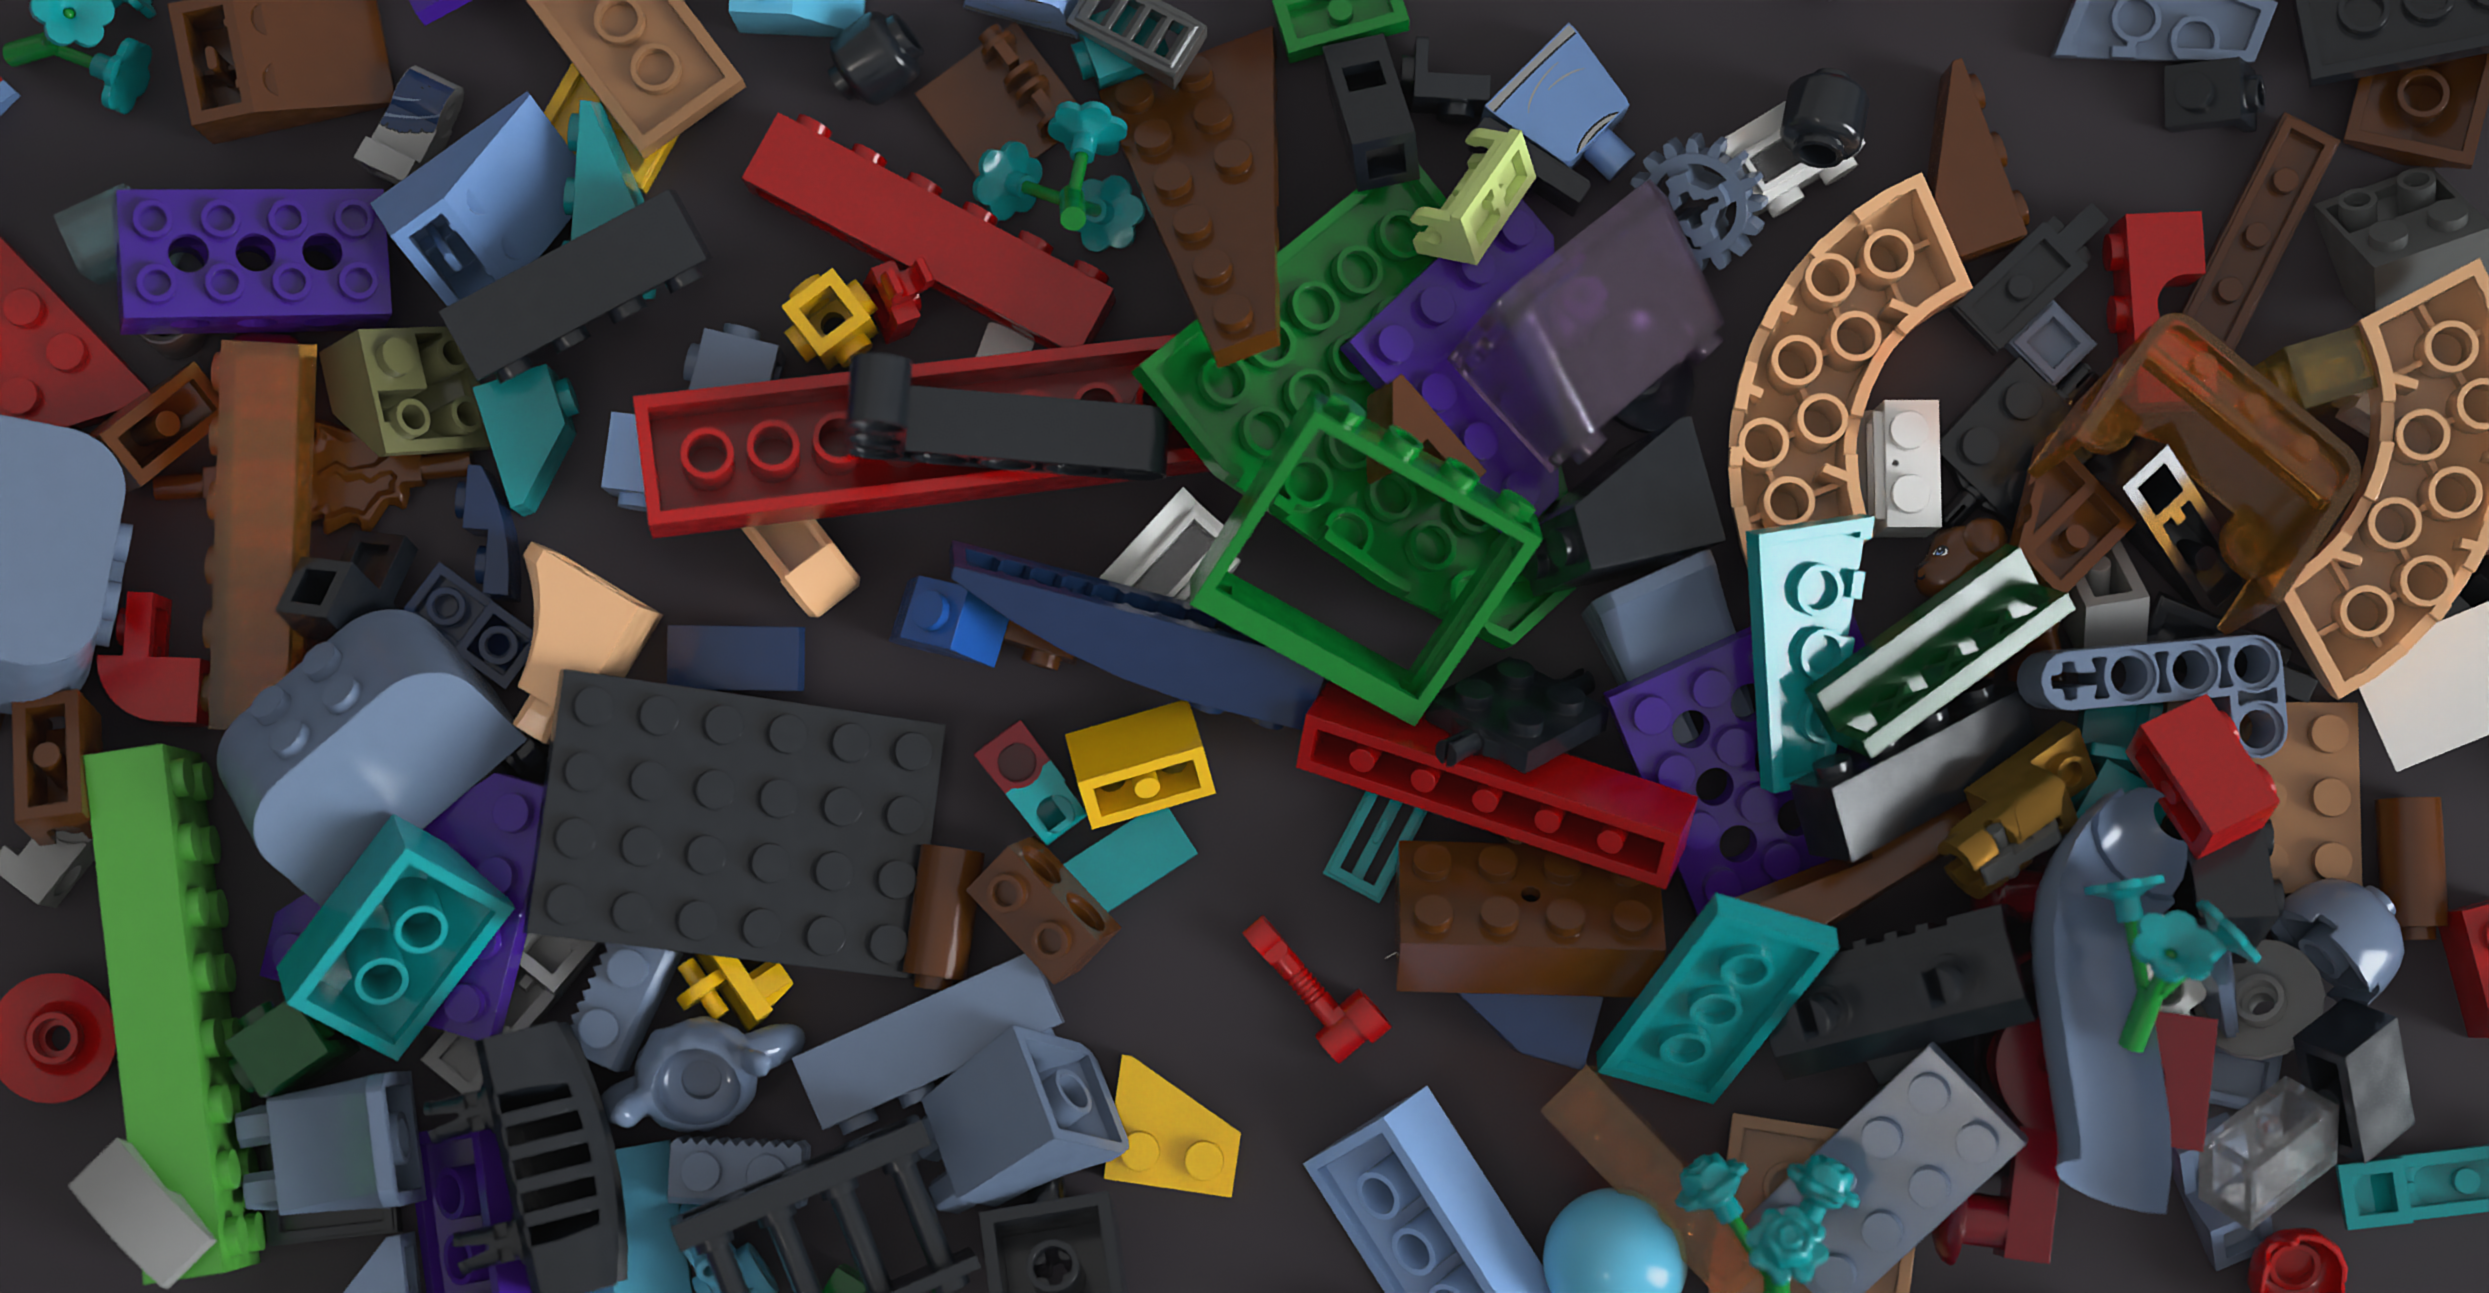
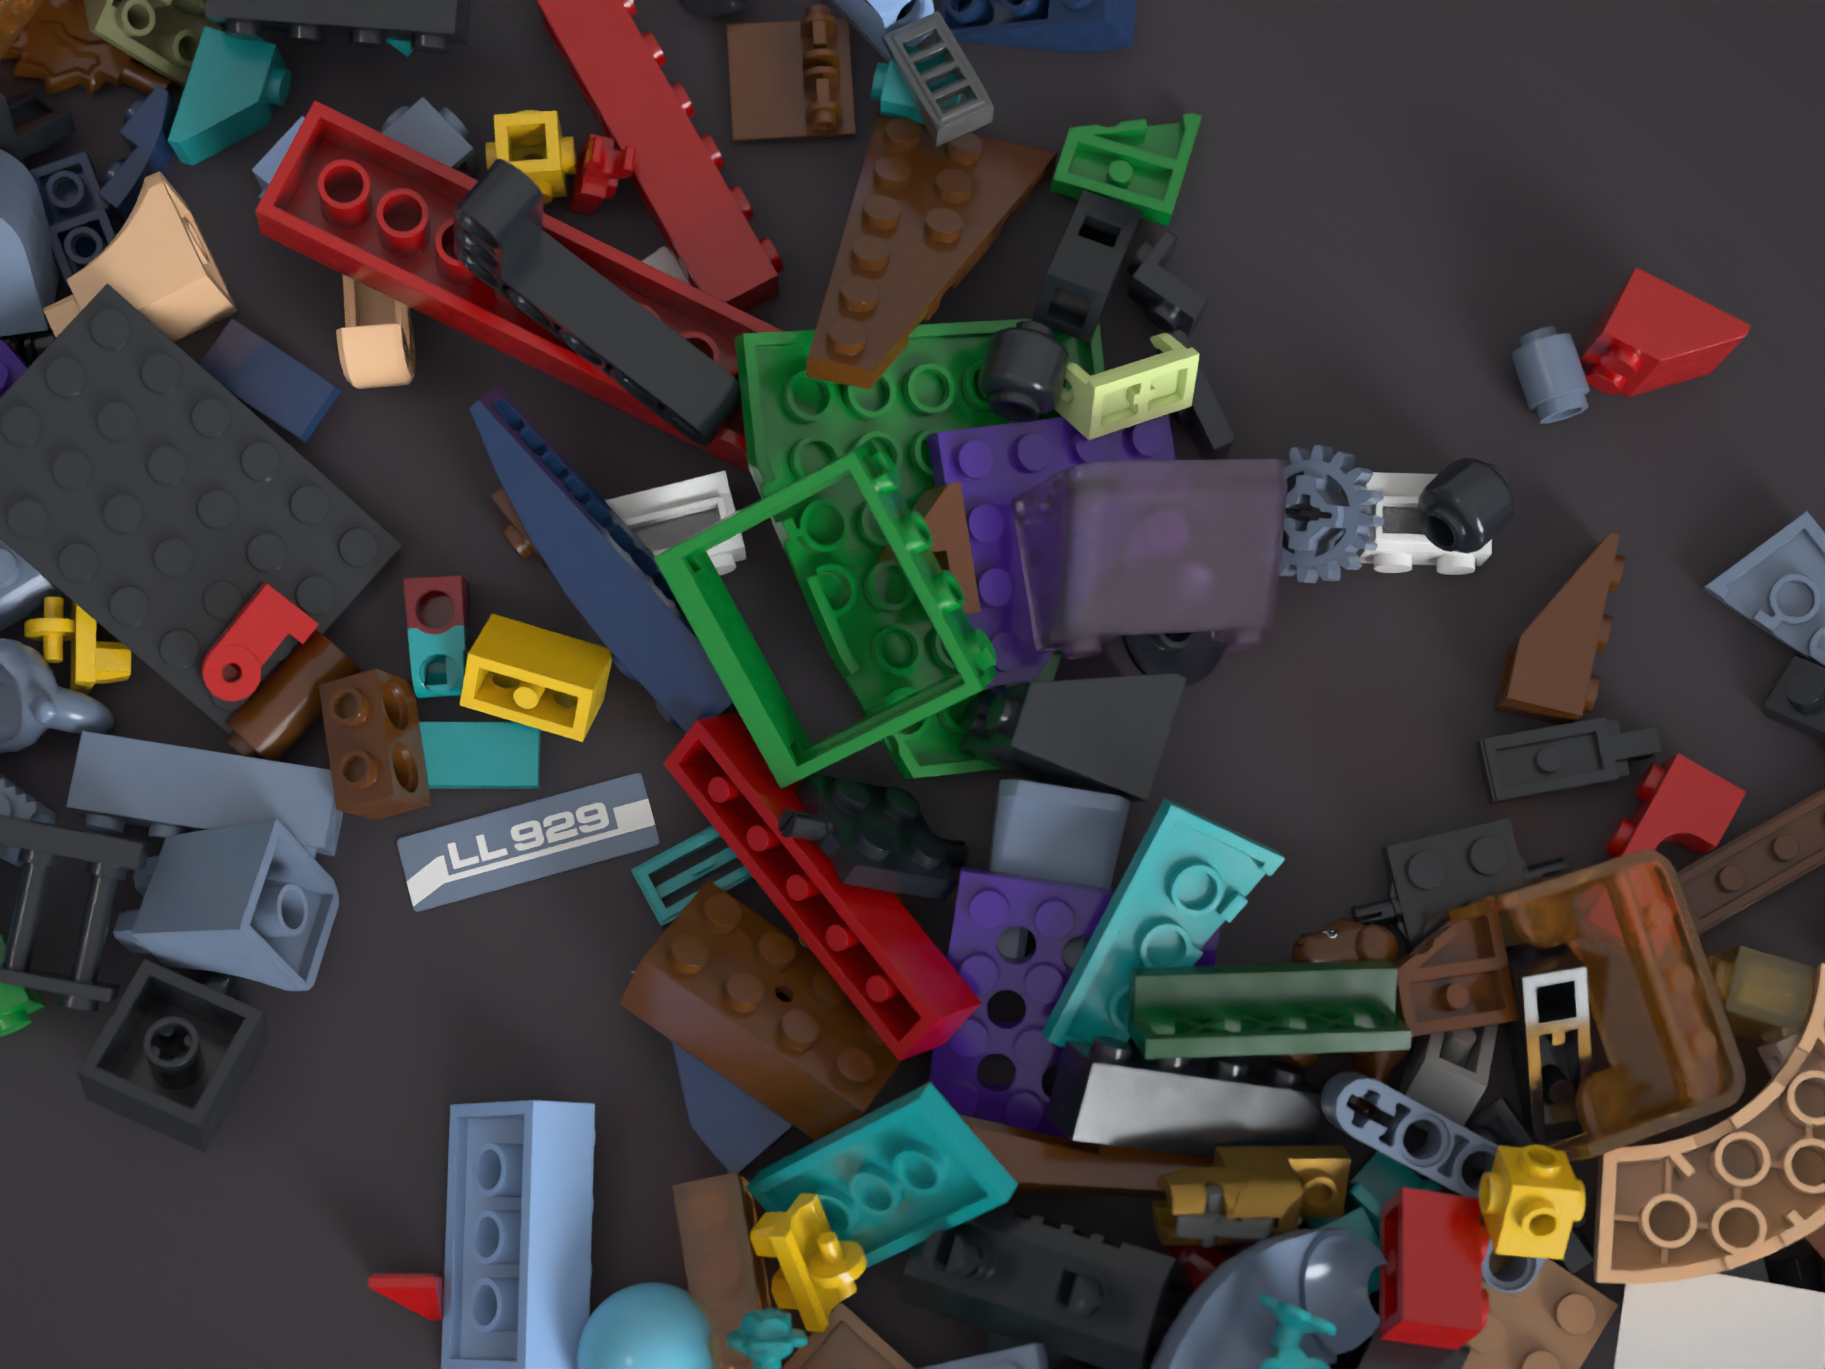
camera: 30 degrees right, 5 degrees down
(884, 892) = (235, 659): none -> red leg
(948, 622) = (456, 459): blue slope -> none
(1097, 209) = (756, 142): teal plant -> none
(1171, 1136) = (354, 1008): yellow wing -> none
(1218, 905) = (527, 842): none -> sand blue sticker
(1344, 1024) = (564, 1009): red brick -> none
(1385, 241) = (1023, 371): none -> black head
(1566, 106) = (1256, 367): medium blue torso -> none
(1696, 1097) = (814, 1264): none -> yellow hips
(1823, 351) = (1343, 702): light nougat brick -> none
(1901, 467) = (1342, 845): white window -> none
(2051, 343) = (1546, 827): sand blue tile -> none
(2252, 670) = (1530, 1201): none -> yellow brick

